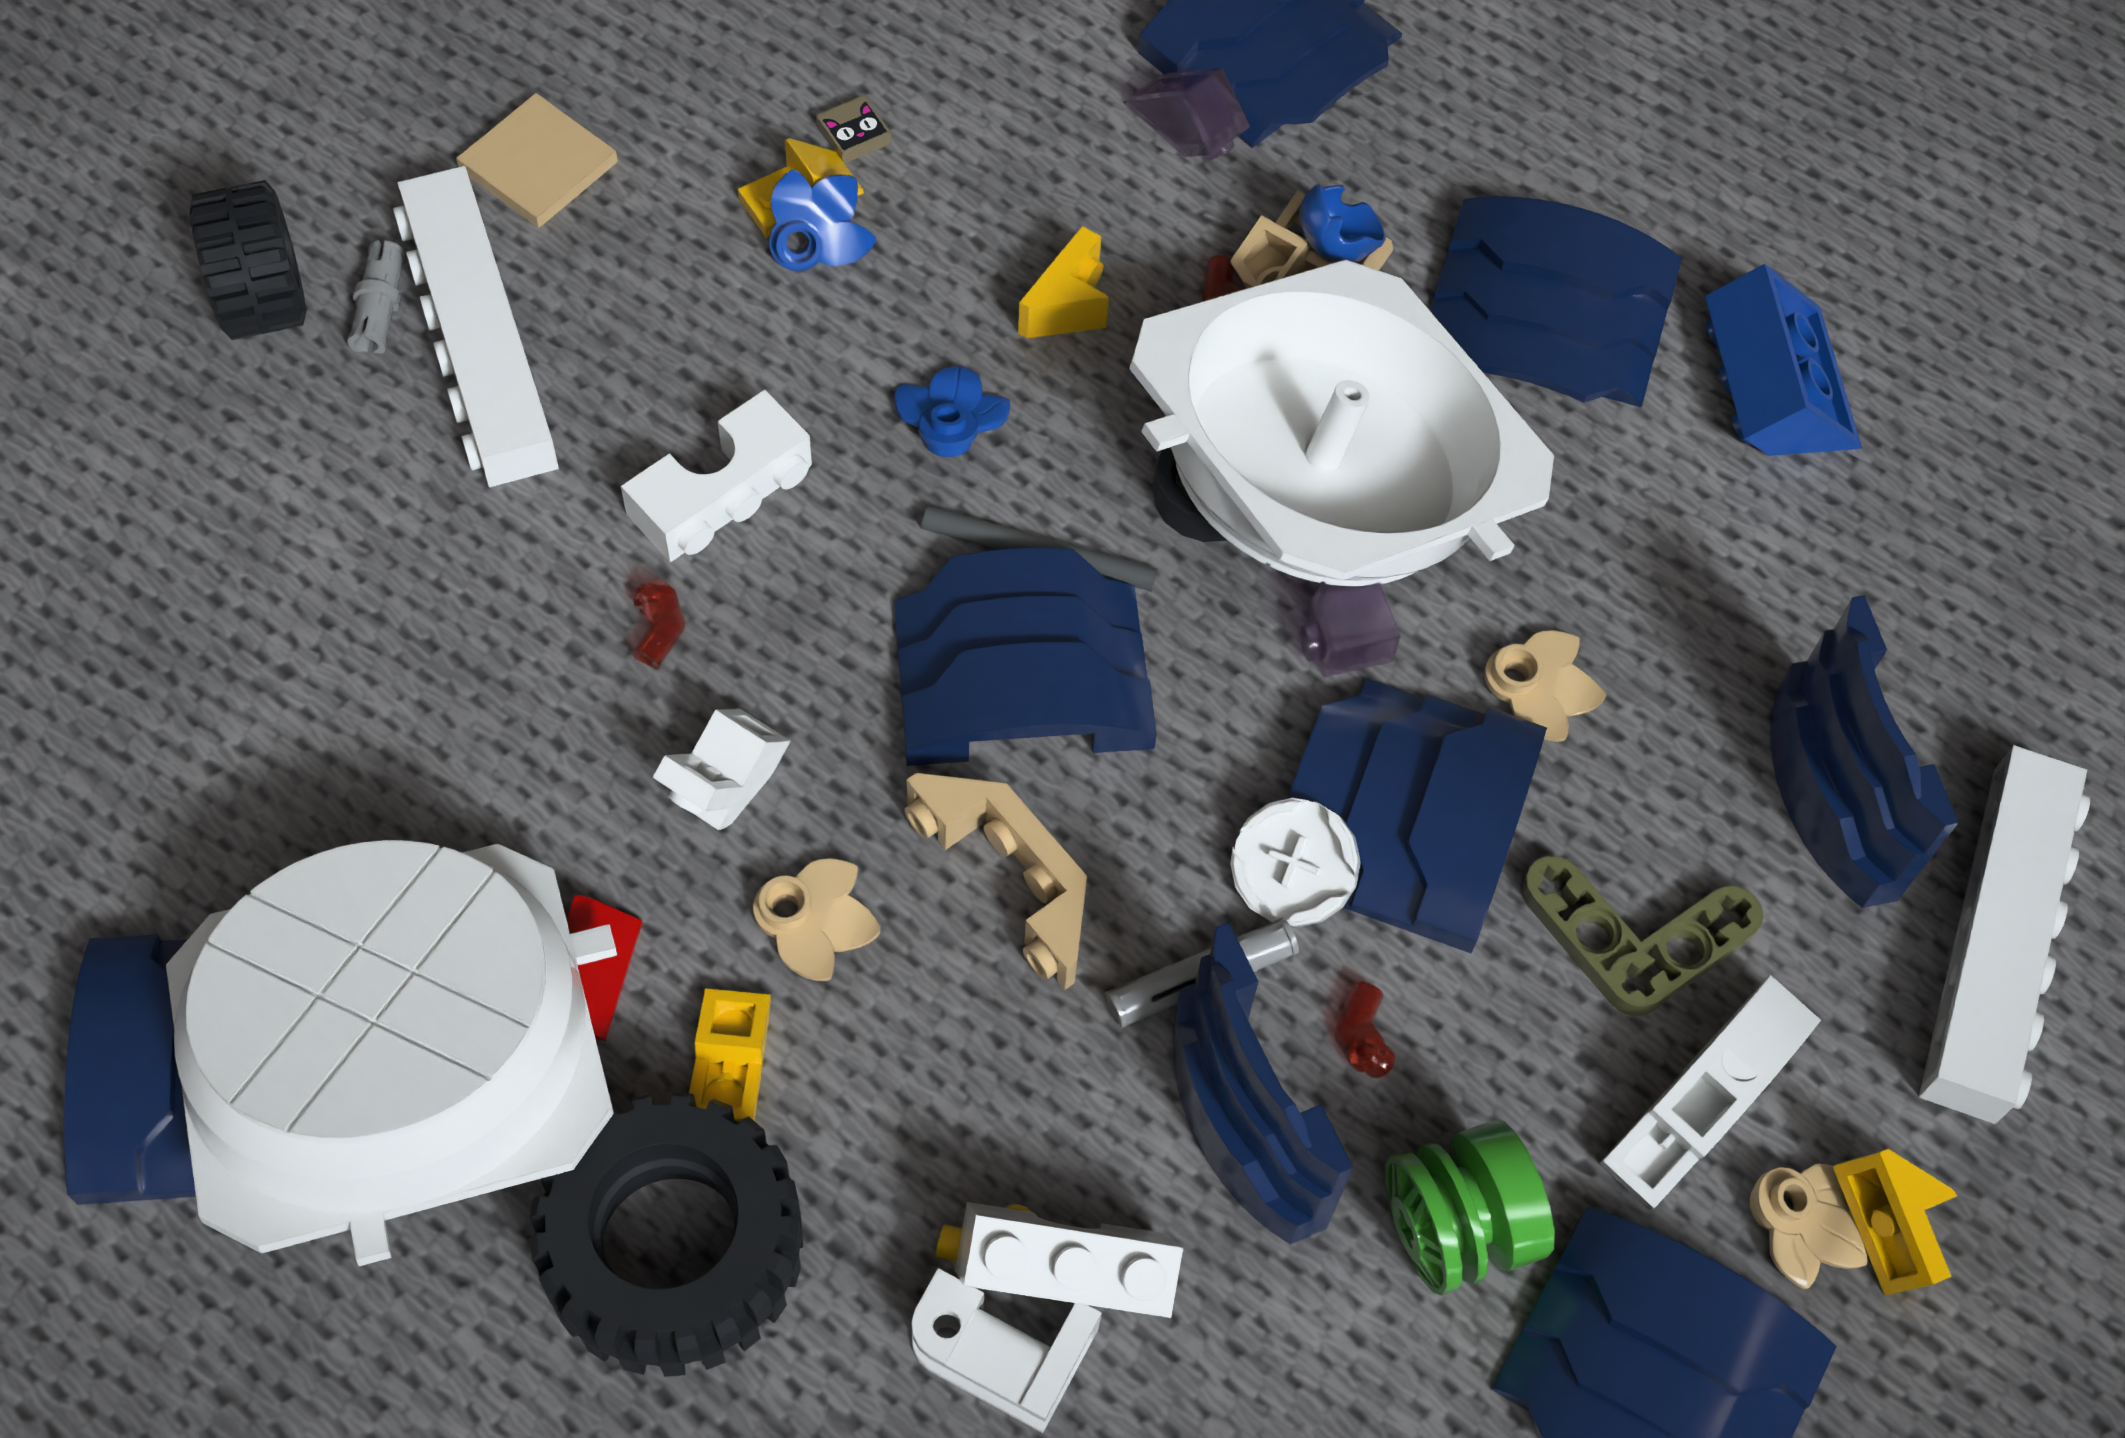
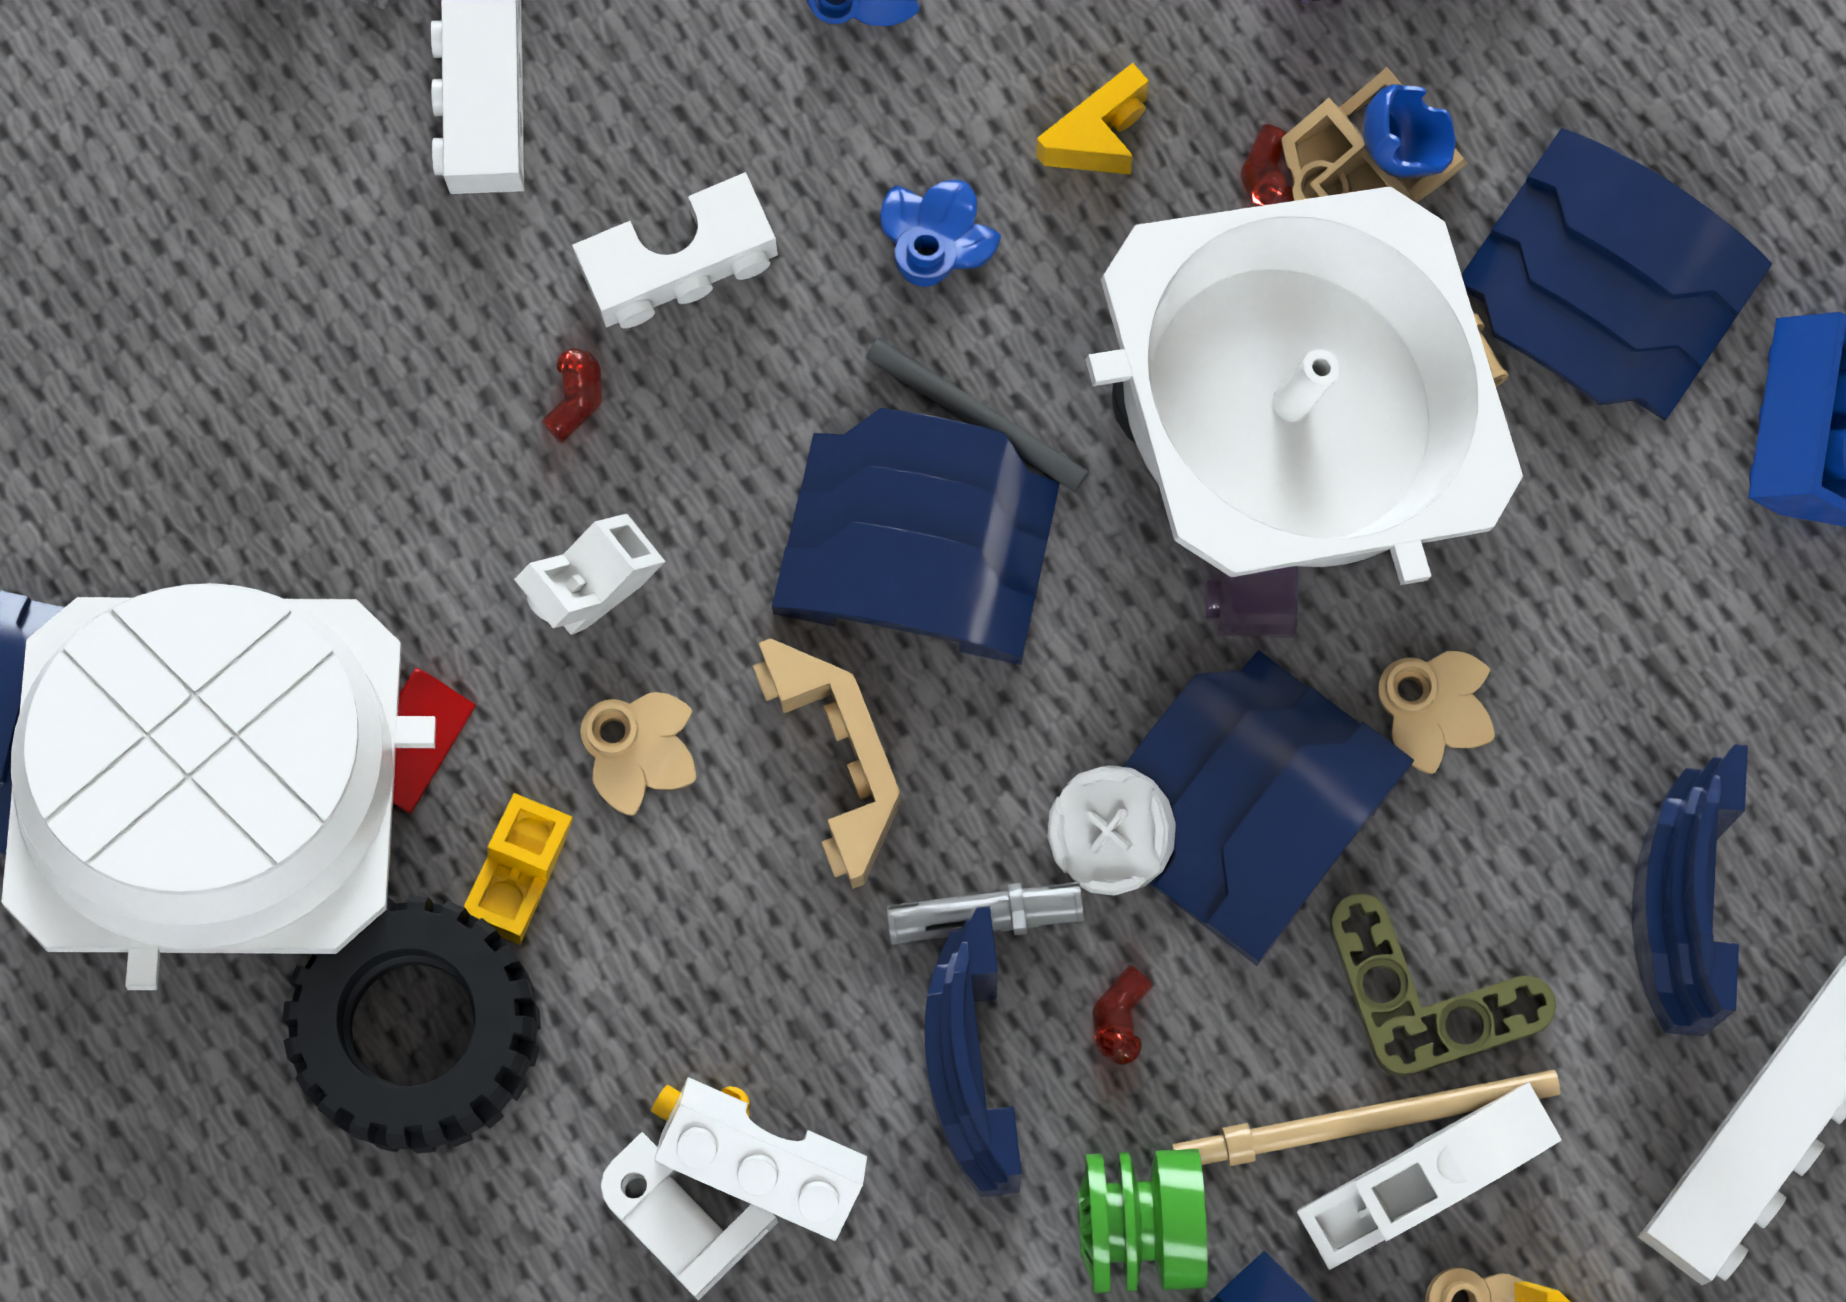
camera: 25 degrees right, 15 degrees up
(1527, 1114) = (1241, 1144): none -> tan bar

